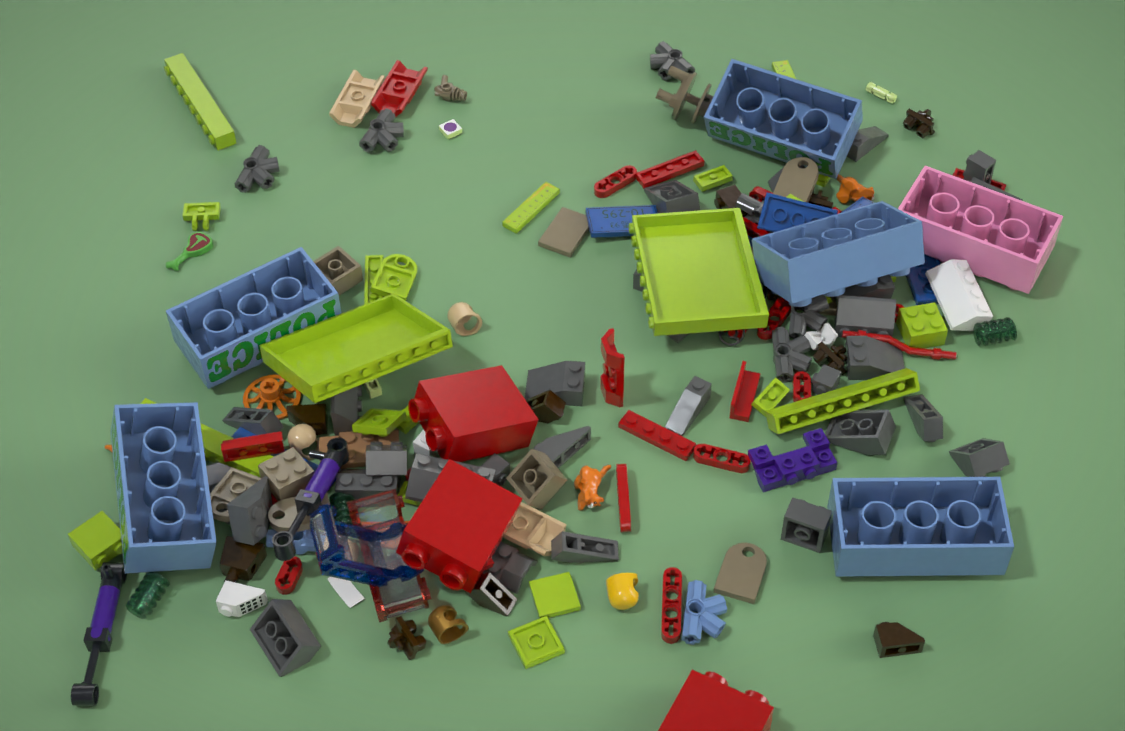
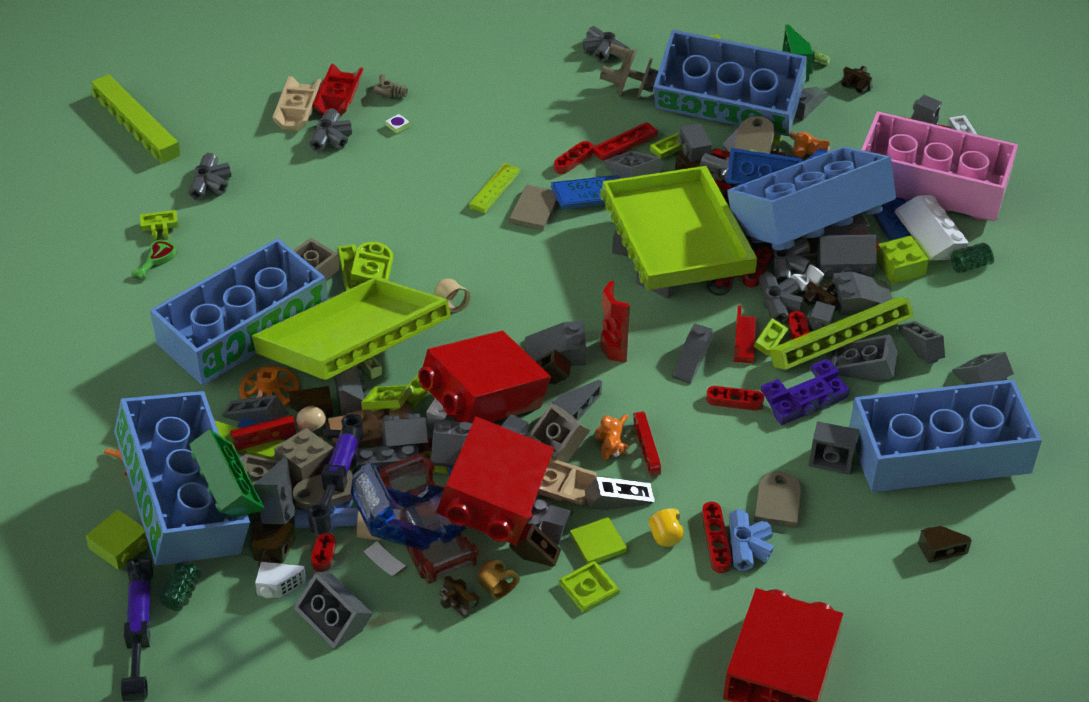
camera: 10 degrees left, 5 degrees down
(200, 493) = (225, 475): none -> green slope
(657, 435) = (666, 383): red plate -> none
(735, 179) = (694, 141): none -> dark grey brick
(863, 88) = (796, 44): none -> green slope
(935, 353) = (919, 283): red bar -> none
(1017, 186) = (962, 124): none -> white plate

